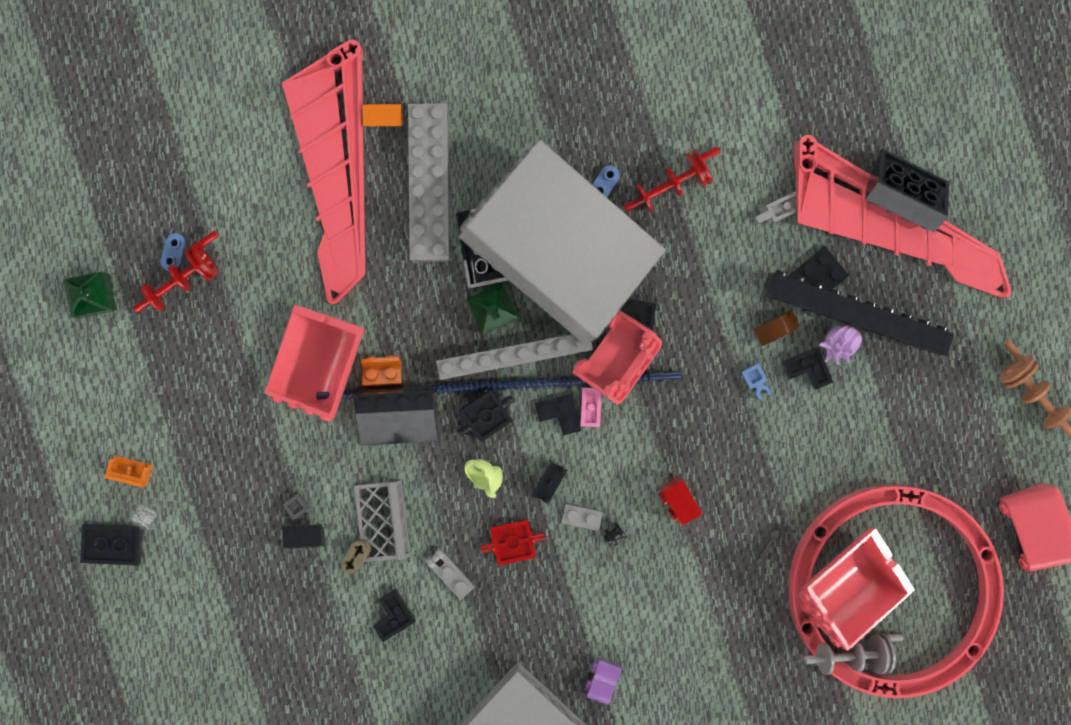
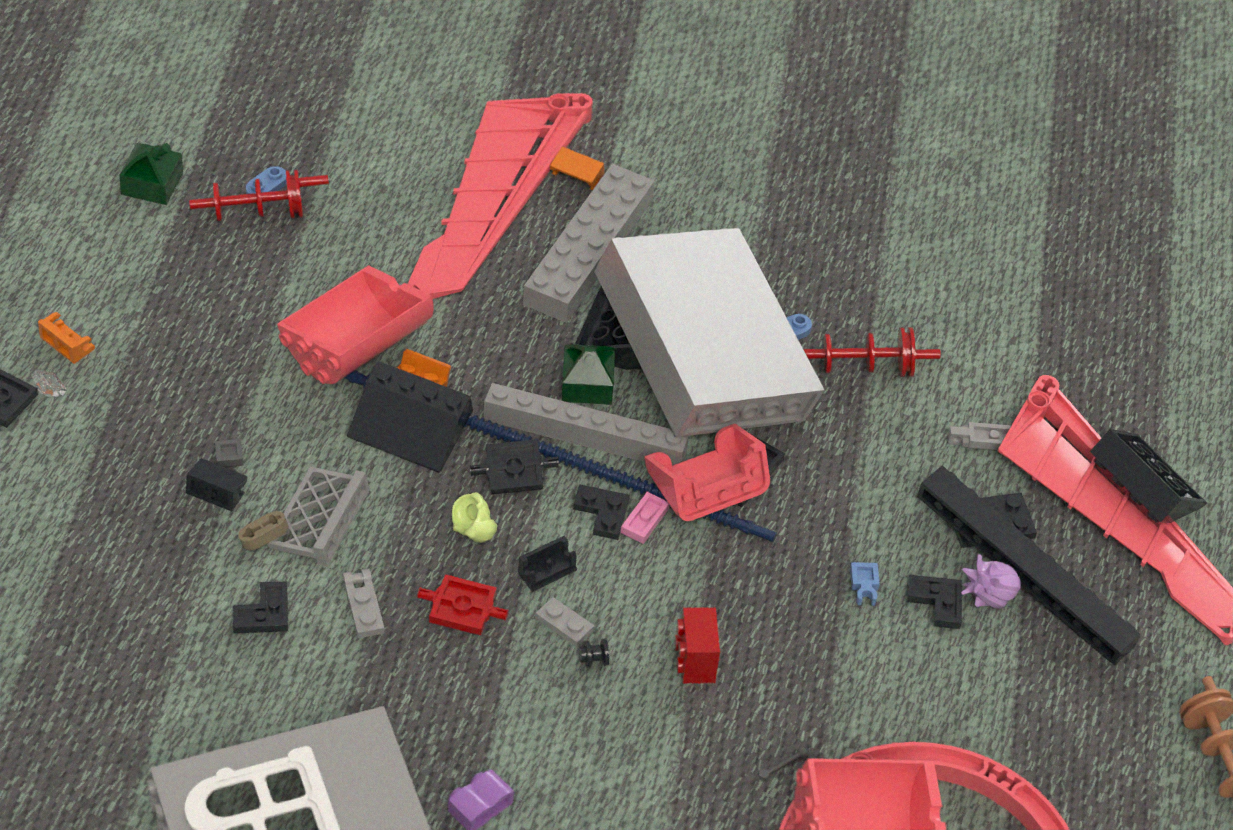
camera: 20 degrees right, 40 degrees down
(776, 327) = (918, 534): reddish brown brick -> none

